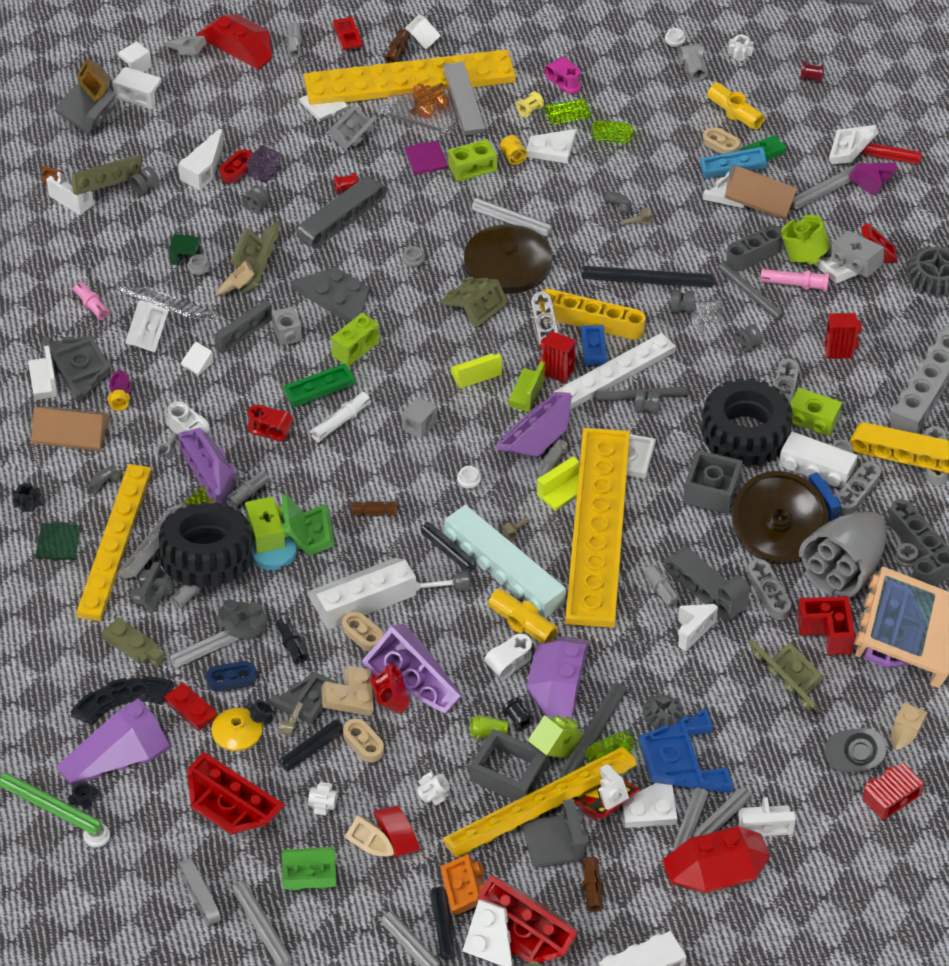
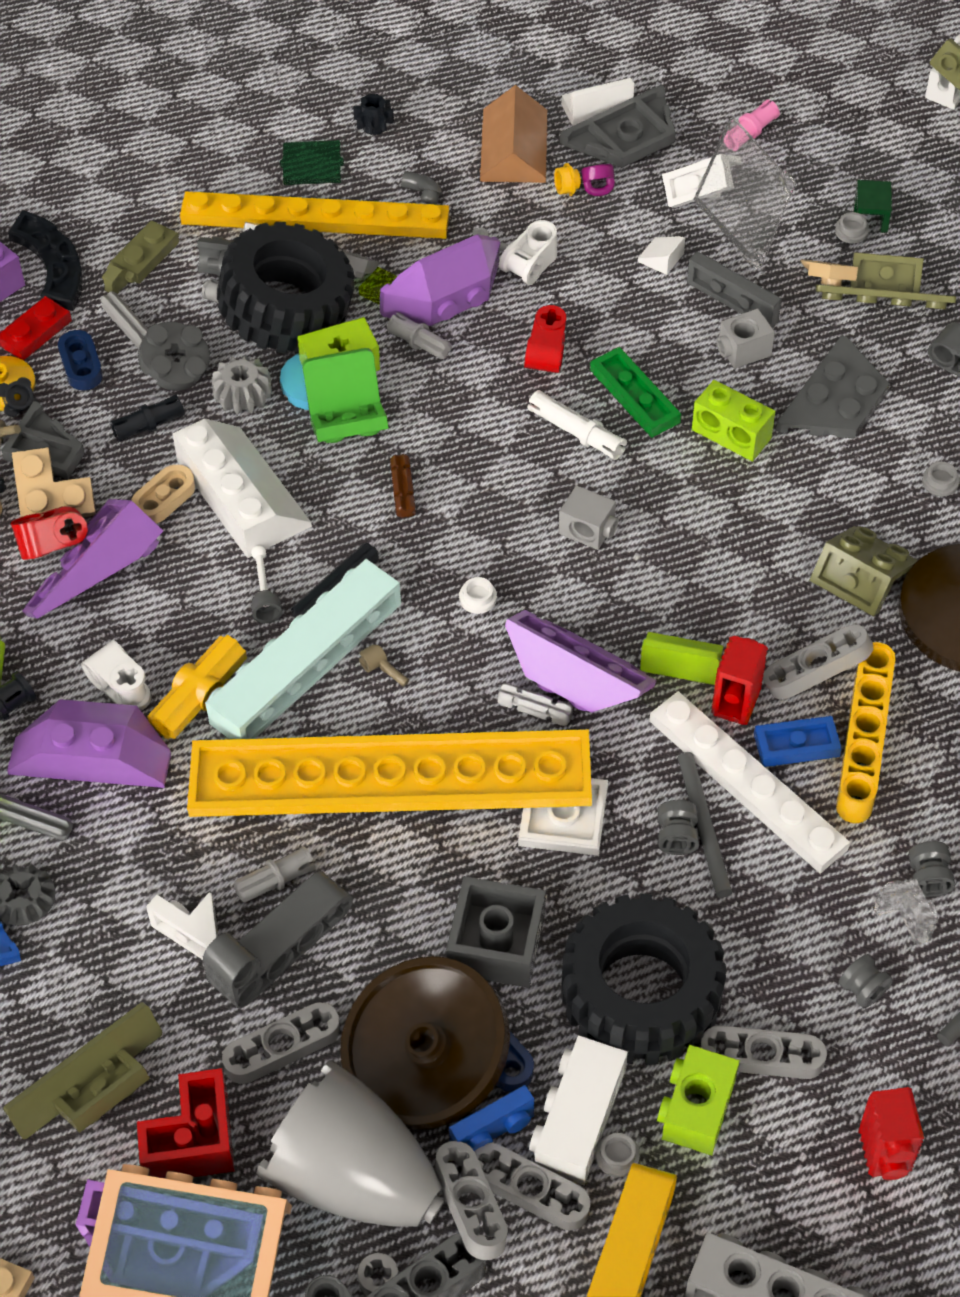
camera: 85 degrees right, 5 degrees up
(275, 584) = (241, 384): none -> light grey gear
(477, 370) = (708, 585): neon yellow panel -> none
(559, 484) = (474, 711): neon yellow panel -> none
(879, 494) = (467, 1217): none -> light grey beam

